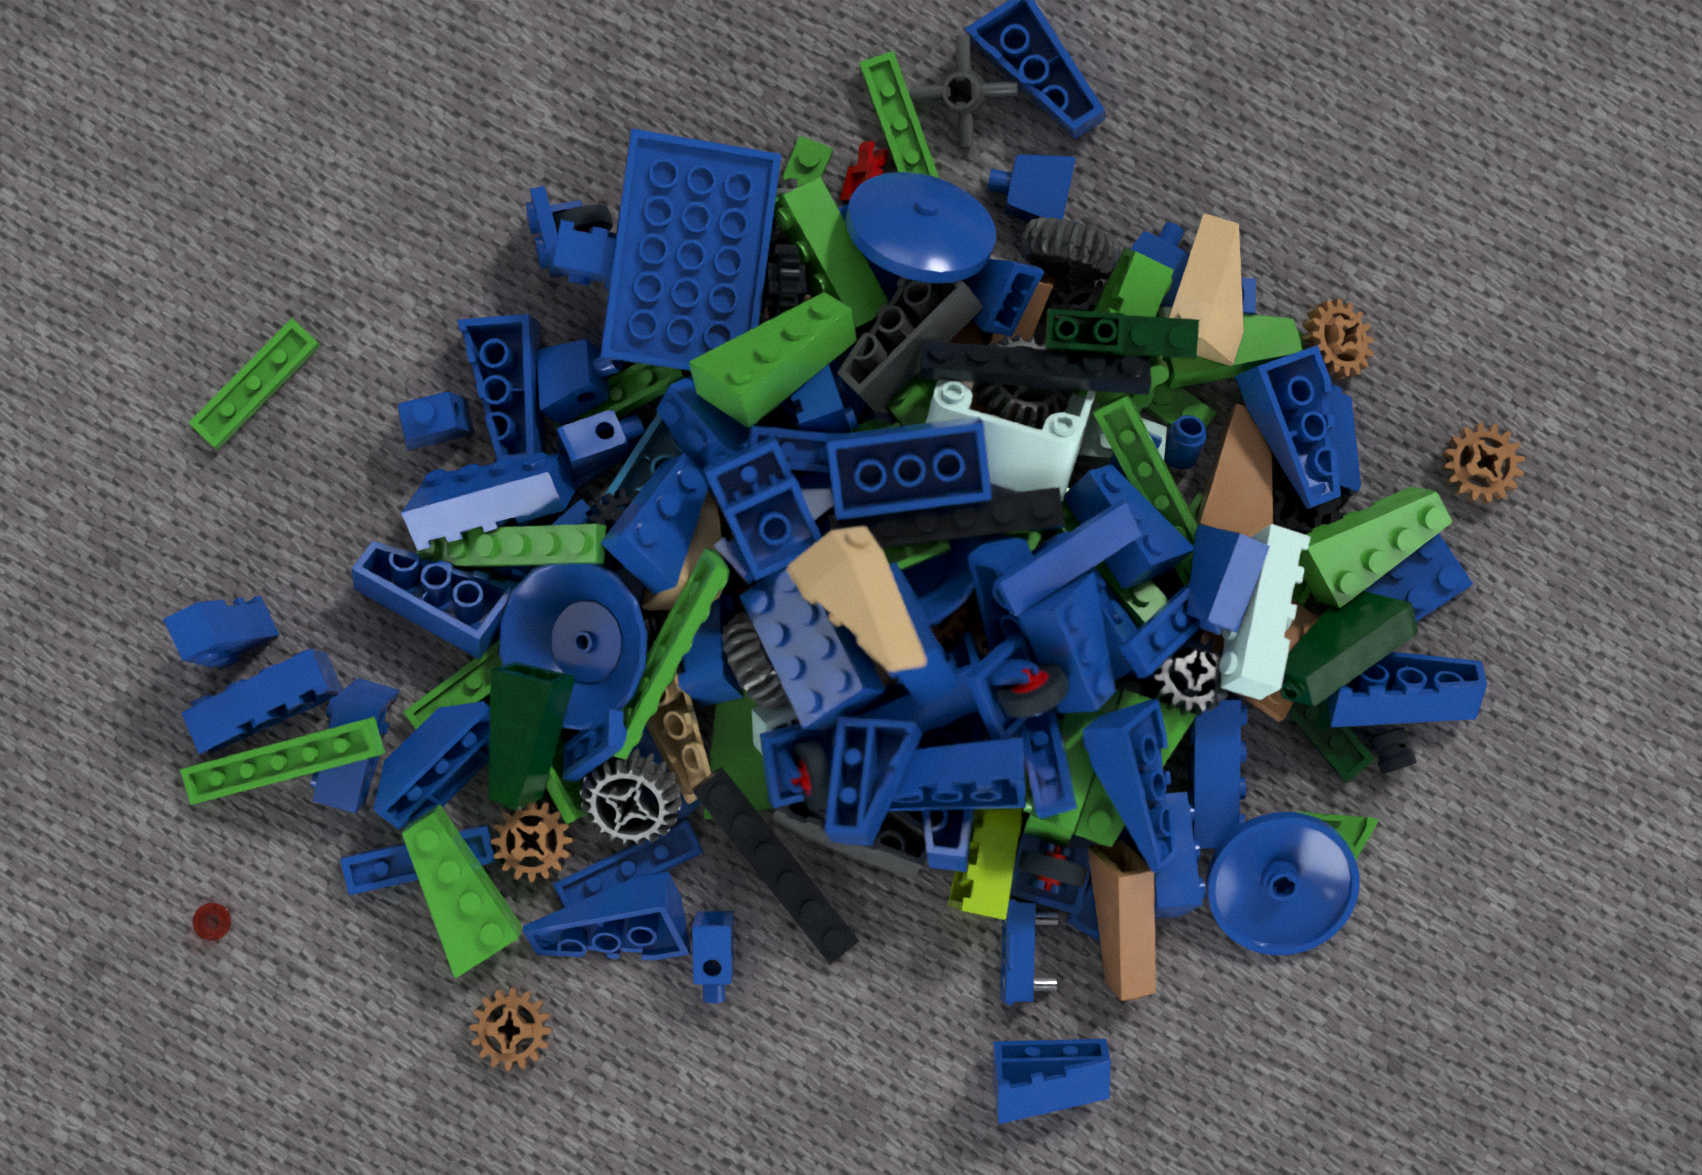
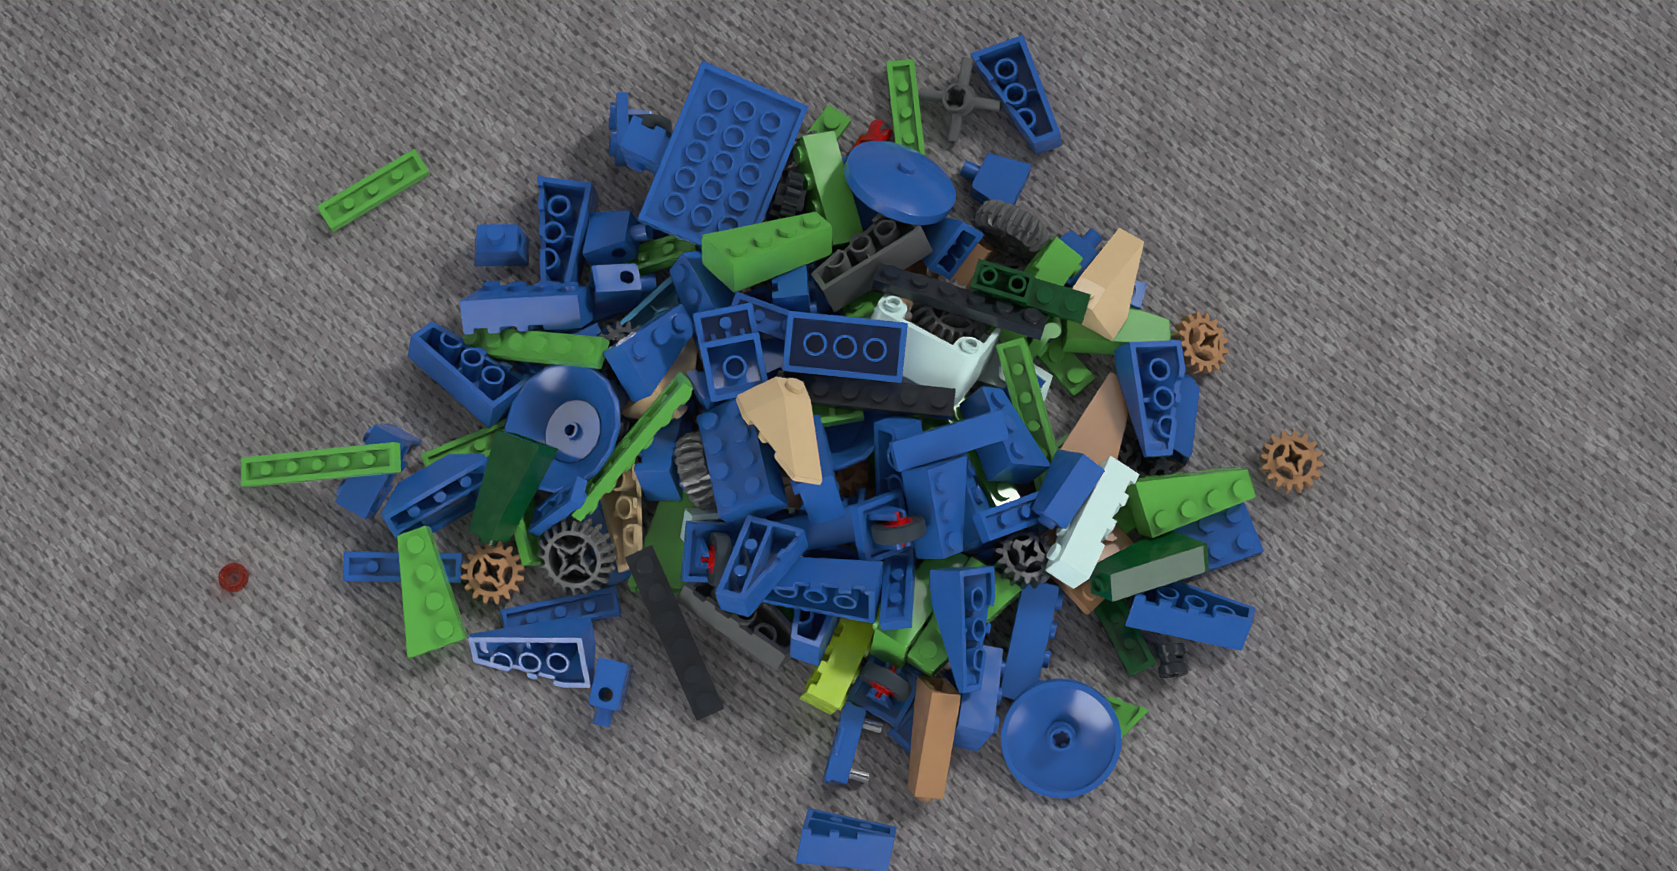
camera: 10 degrees right, 10 degrees down
(217, 633) = (299, 360): blue wedge -> none
(261, 700) = (316, 420): blue wedge -> none
(528, 1029) = (427, 706): medium nougat gear -> none
(1184, 442) = (1064, 391): blue brick -> none

